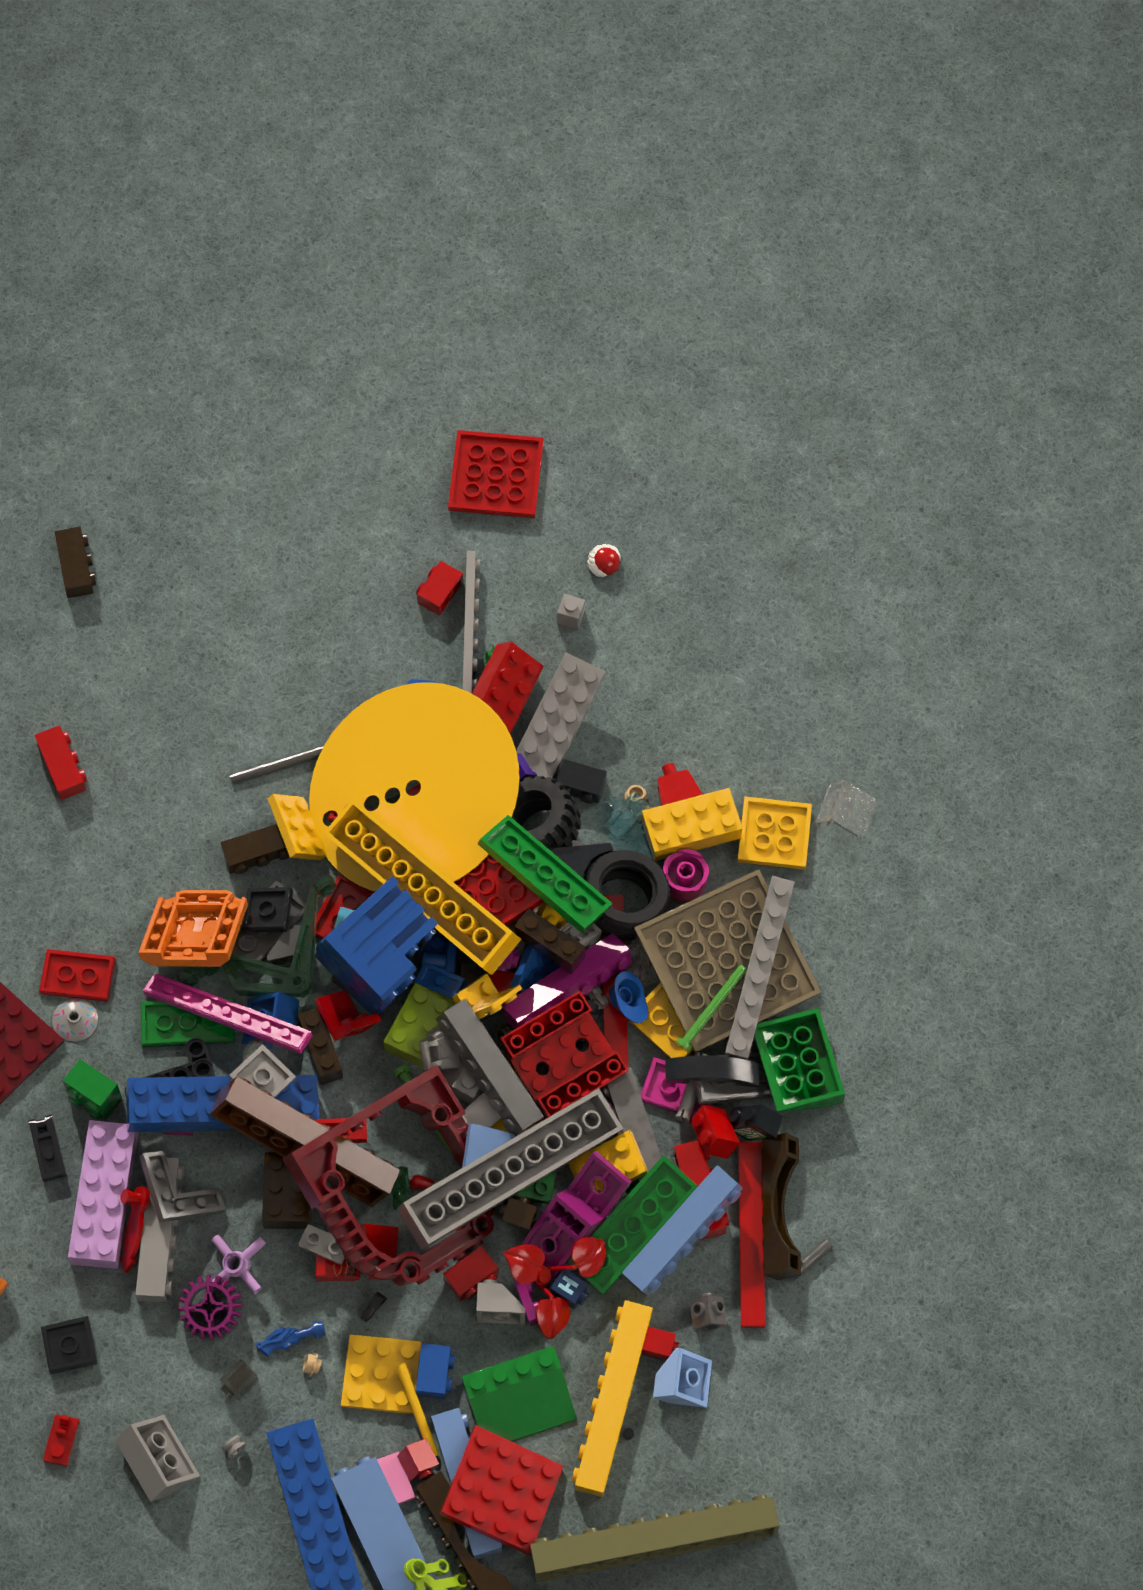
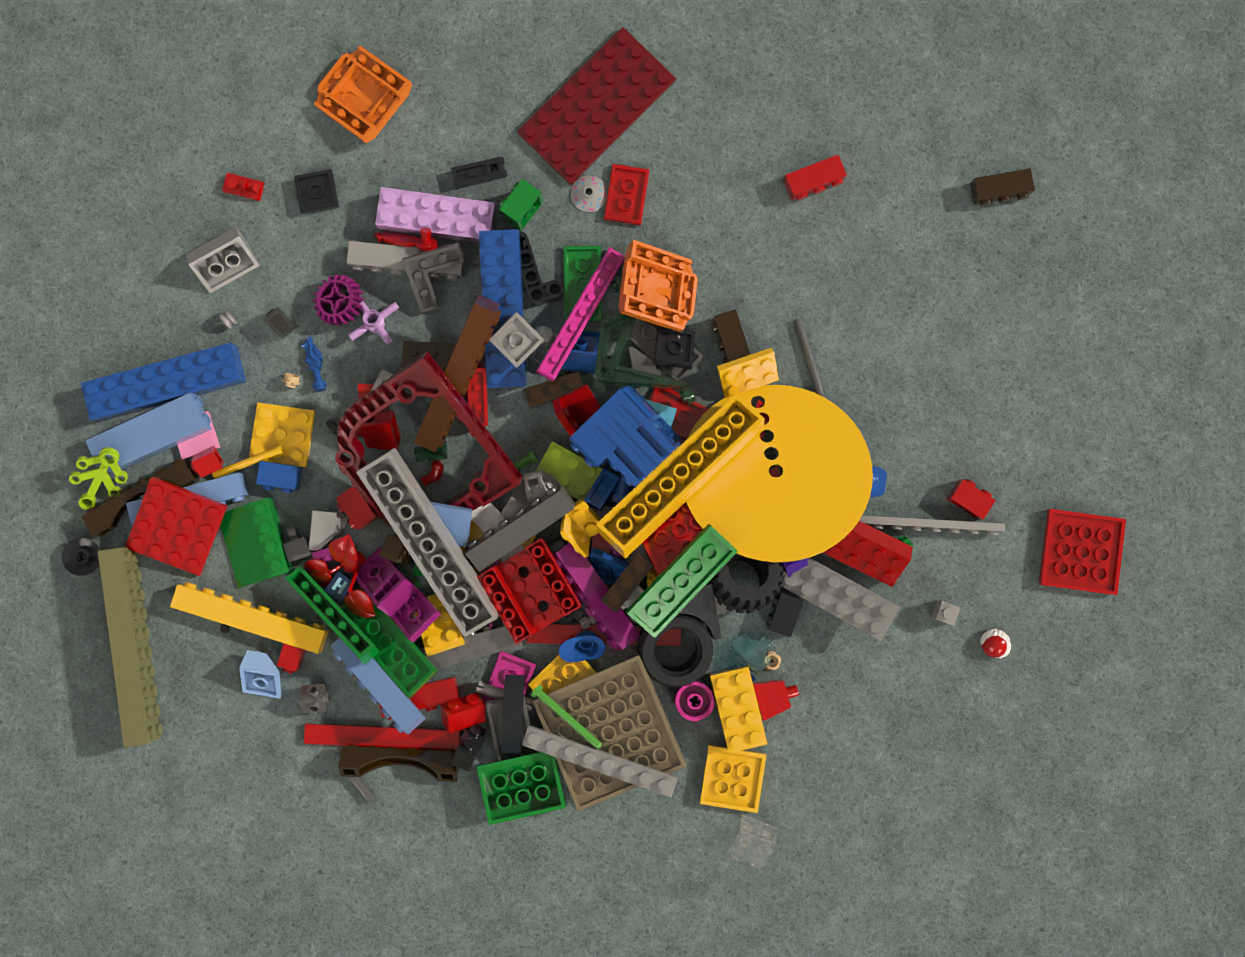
camera: 90 degrees right, 20 degrees up
(522, 1341) = (298, 547): none -> dark grey brick
(603, 1287) = (332, 615): none -> green brick

